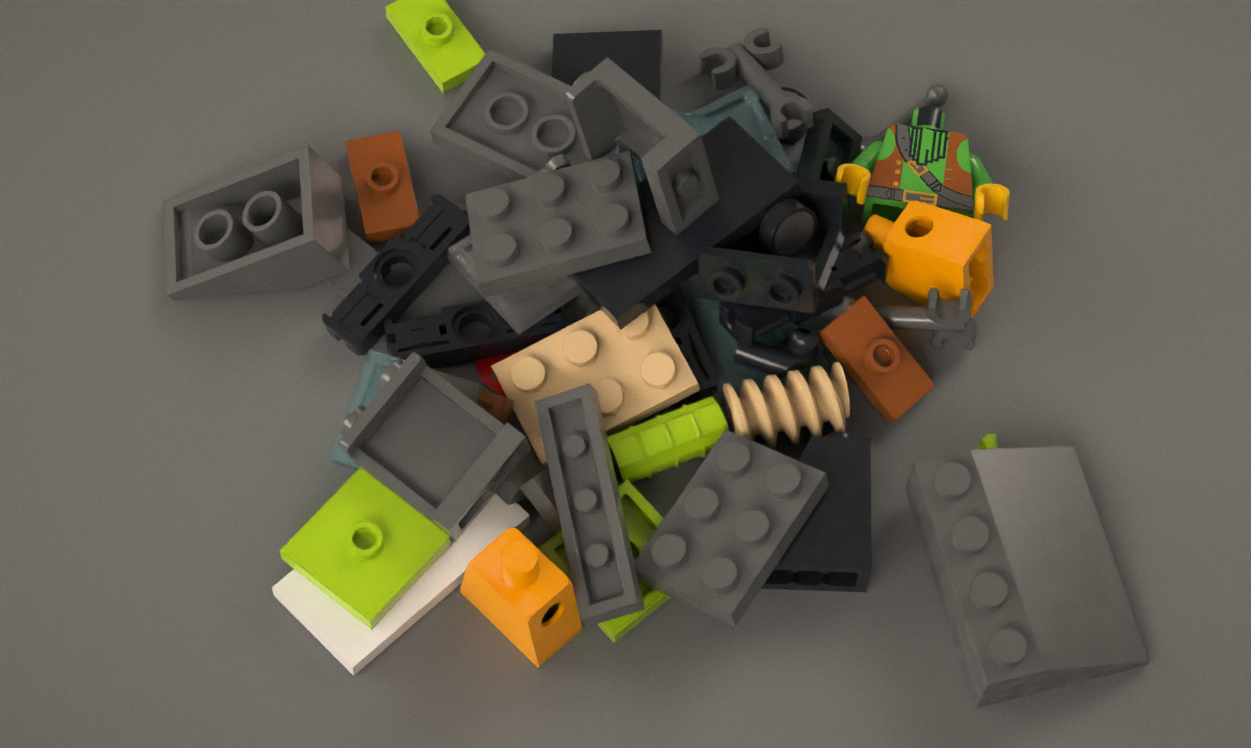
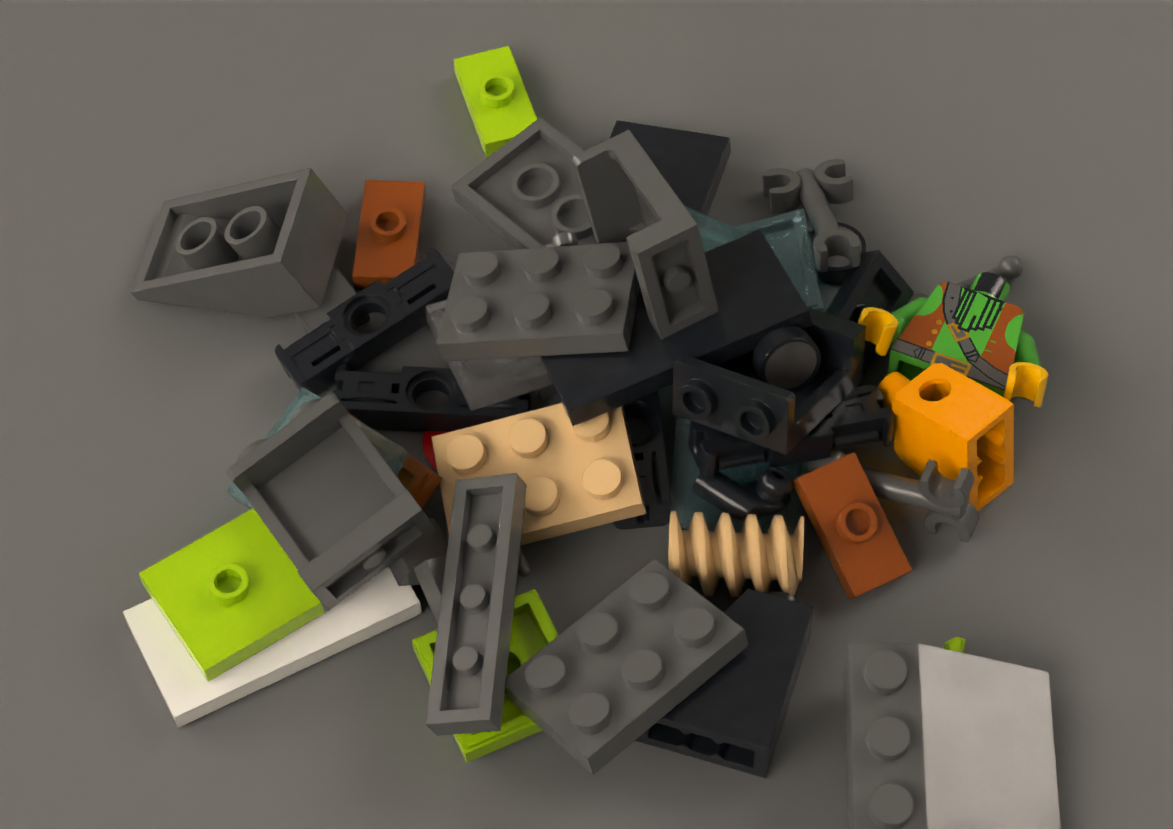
camera: 20 degrees right, 5 degrees down
(514, 590) = (369, 671): light orange torso -> none
(666, 440) = (590, 557): lime axle -> none

